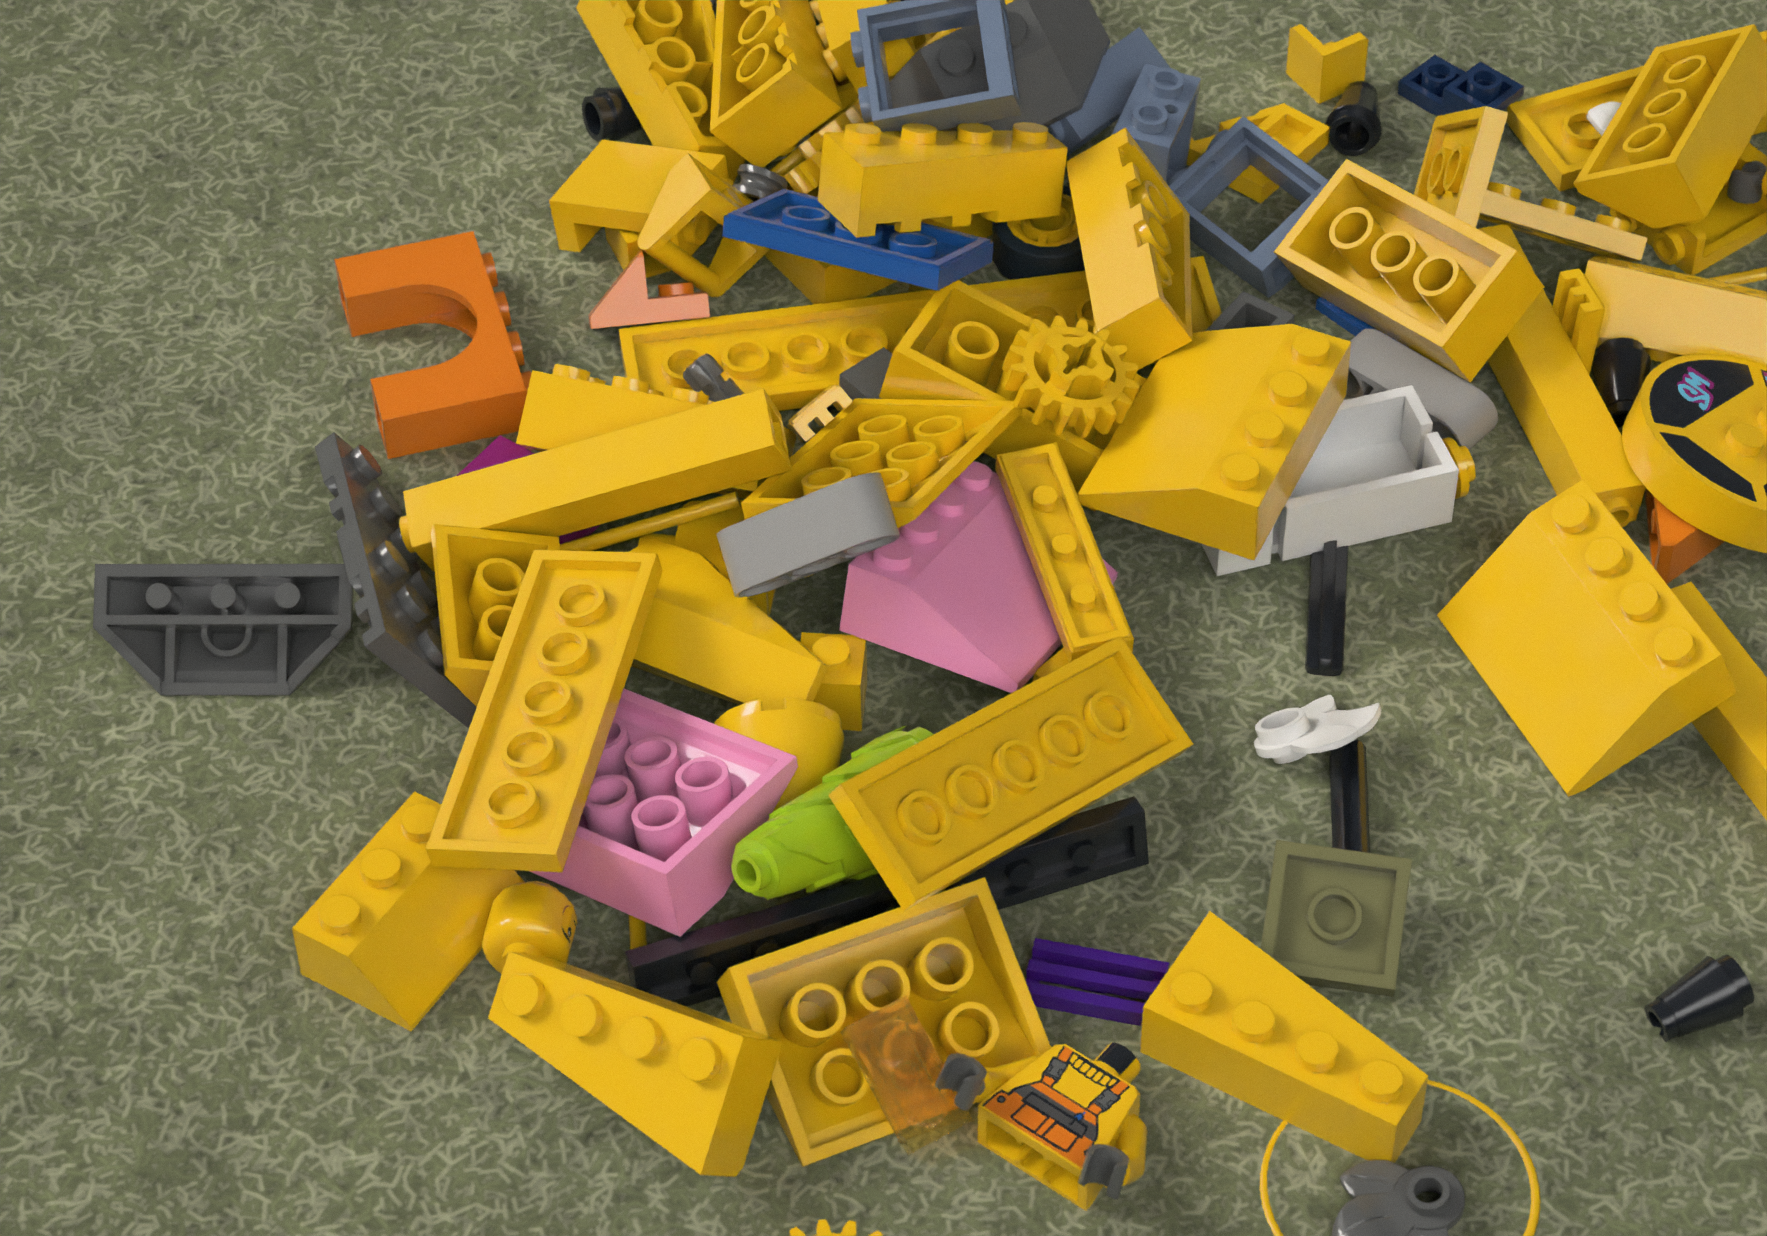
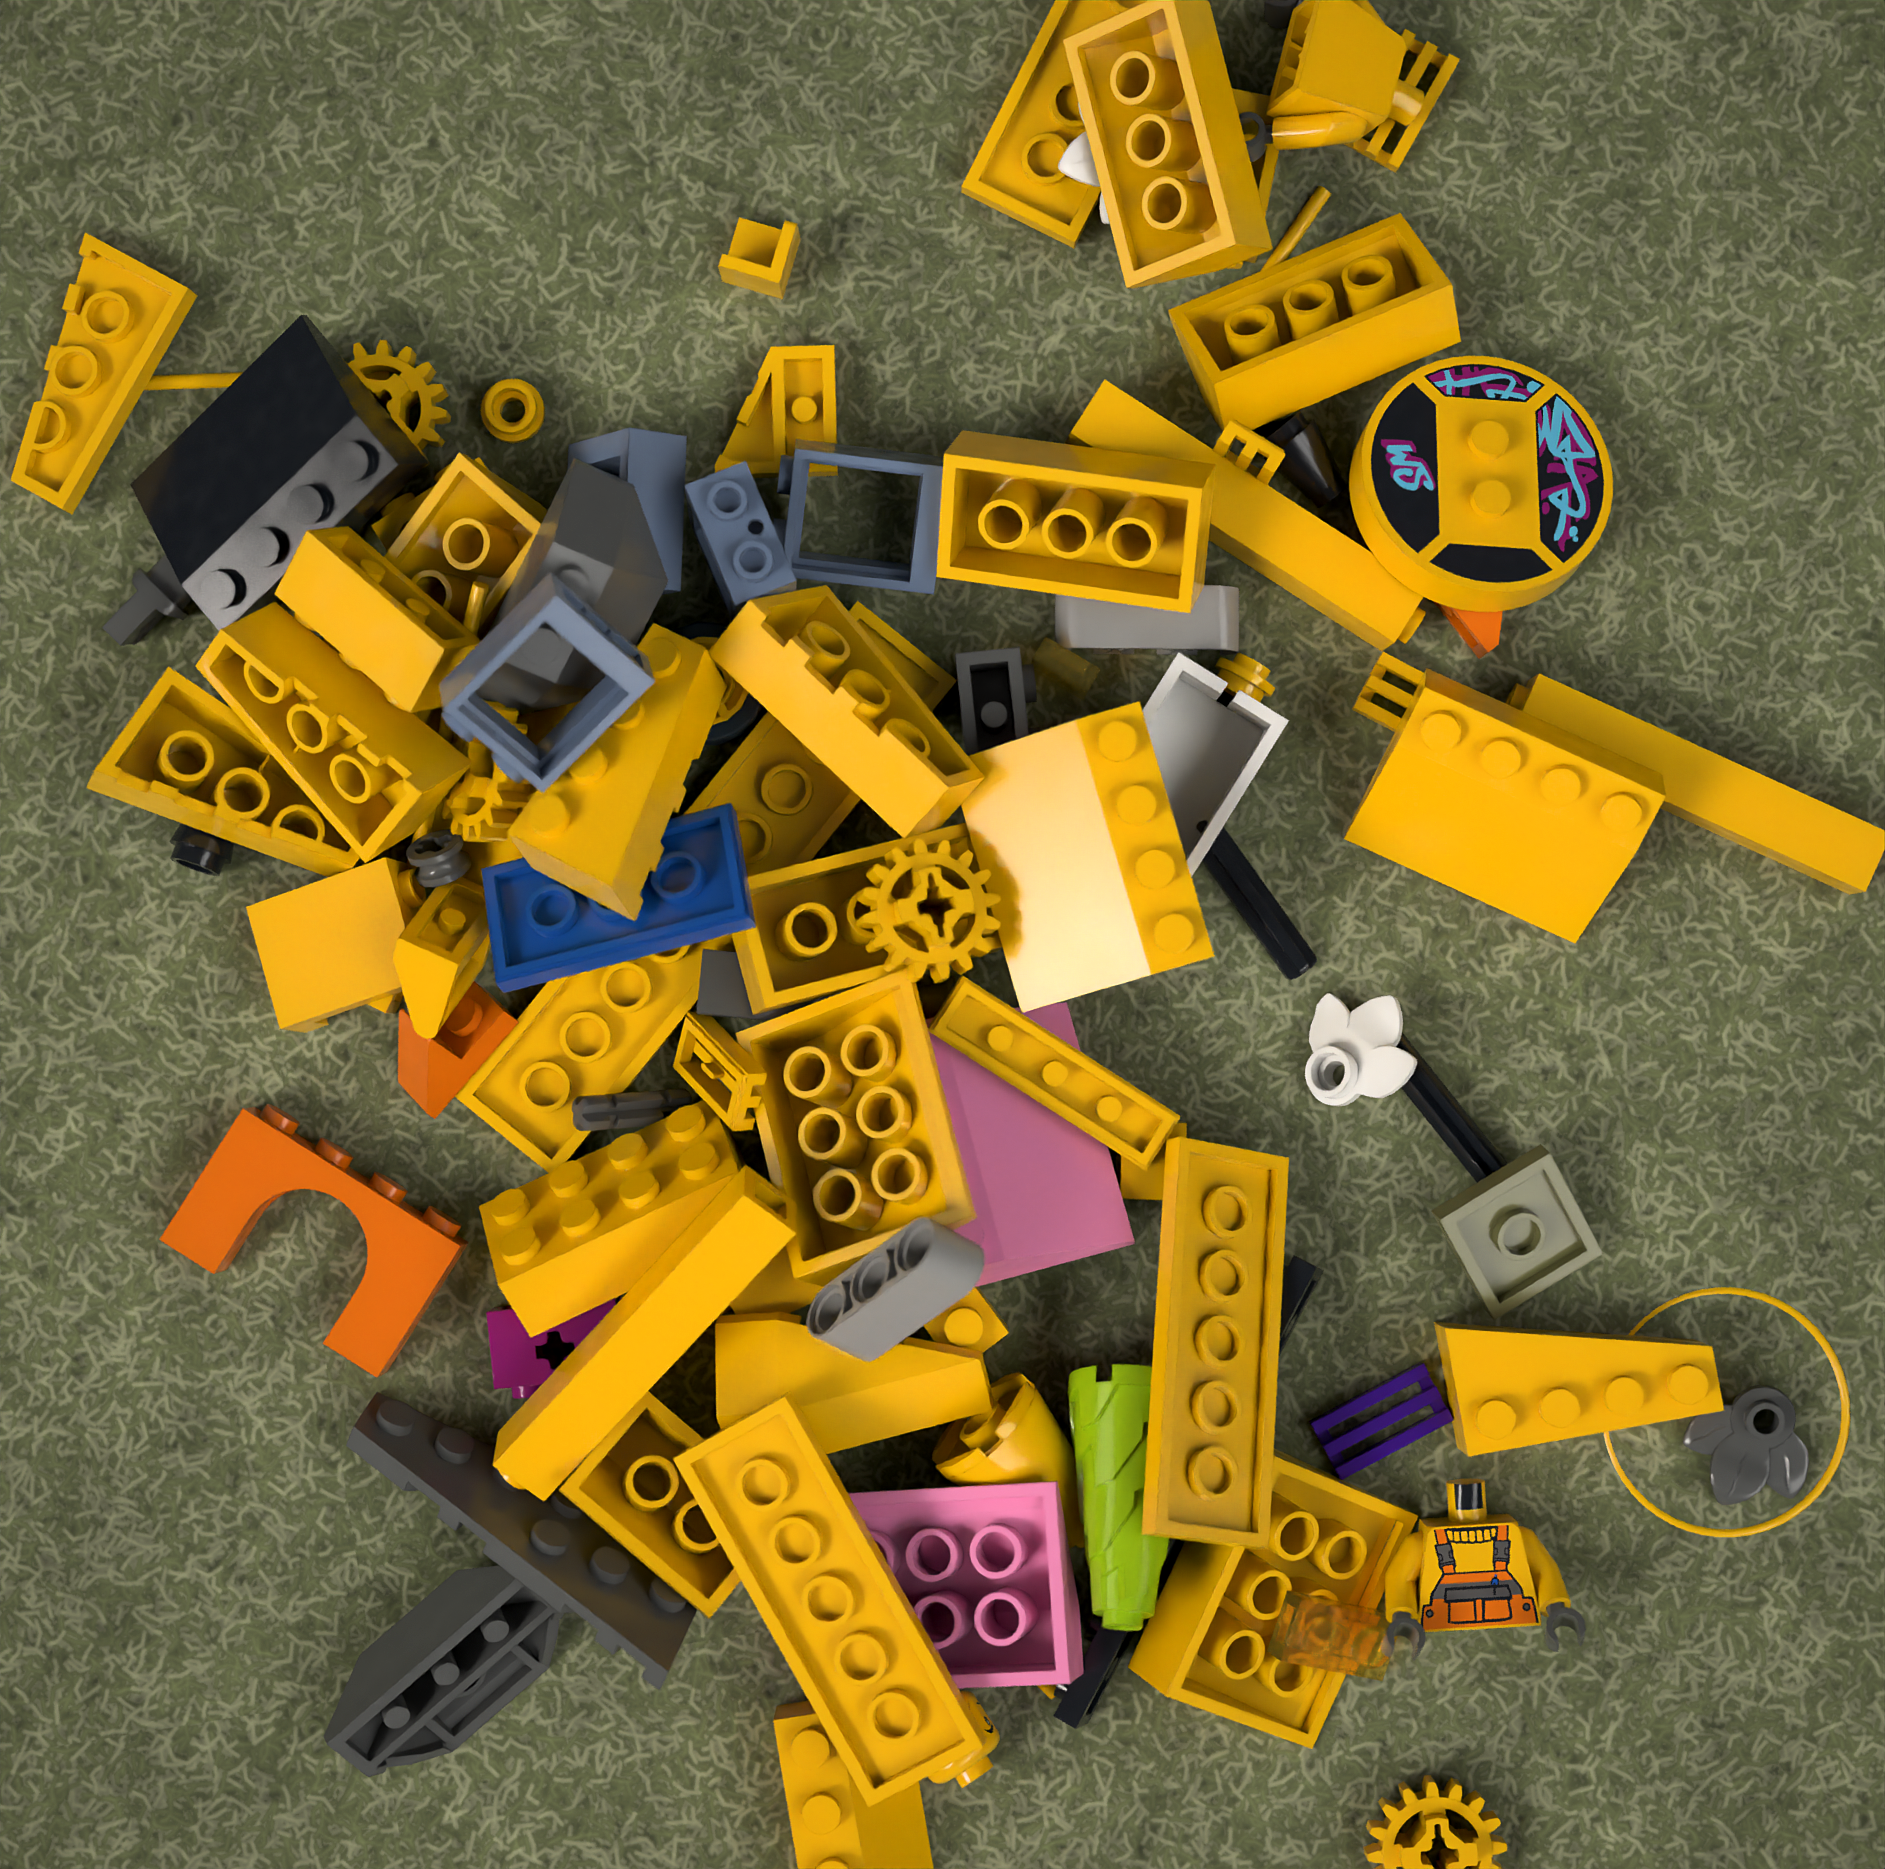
camera: 40 degrees left, 40 degrees up
(654, 1062) = (1138, 1791): yellow wedge -> none
(1354, 119) = (841, 308): black cone -> none
(1448, 89) = (902, 196): dark blue slope -> none
(1457, 181) = (1051, 374): yellow piece -> none
(1701, 998) = (1818, 1075): black cone -> none

